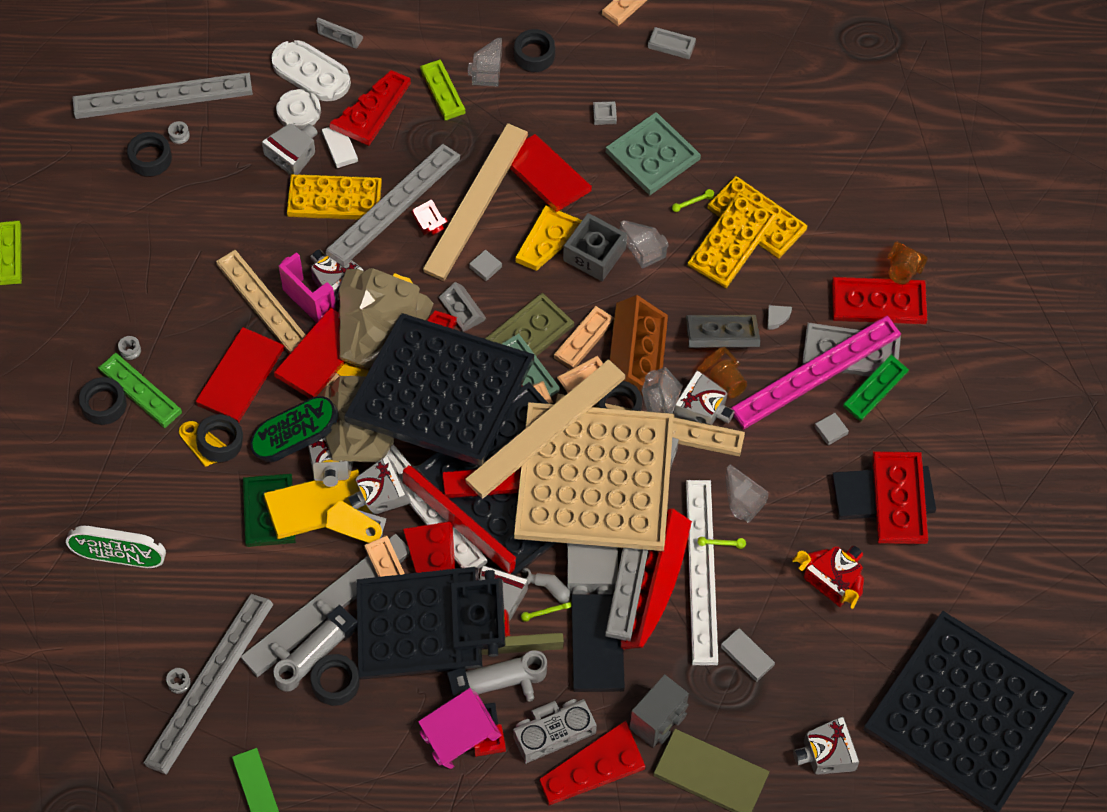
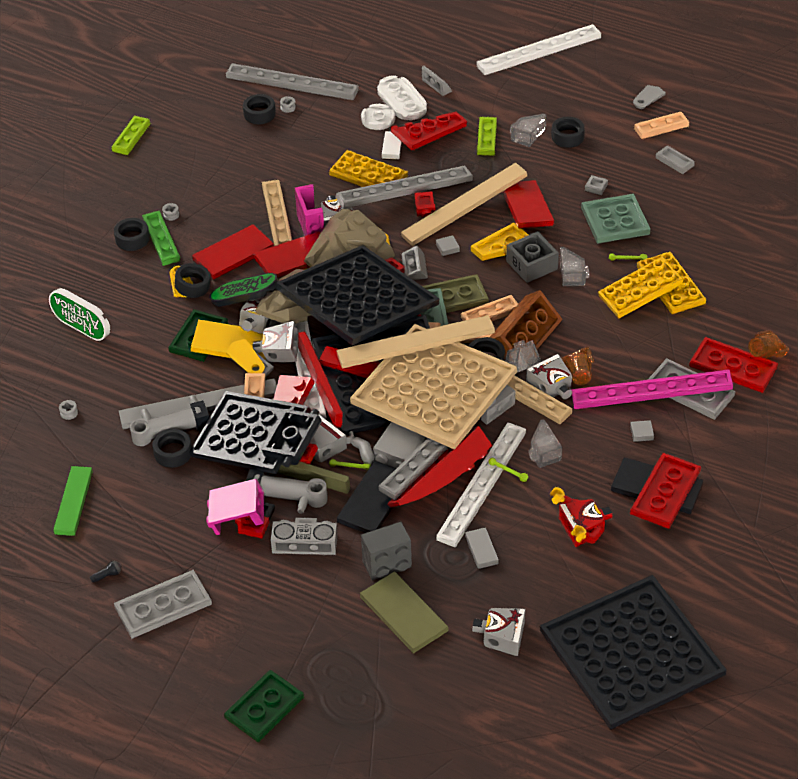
camera: 30 degrees right, 15 degrees down
(208, 684) = (85, 418): light grey tile -> none
(291, 147) = (357, 134): light grey torso -> none
(598, 764) = (328, 572): red wing -> none
(722, 331) = (595, 339): dark grey tile -> none
(777, 316) = (646, 346): light grey tile -> none
(875, 388) = (692, 414): green plate -> none

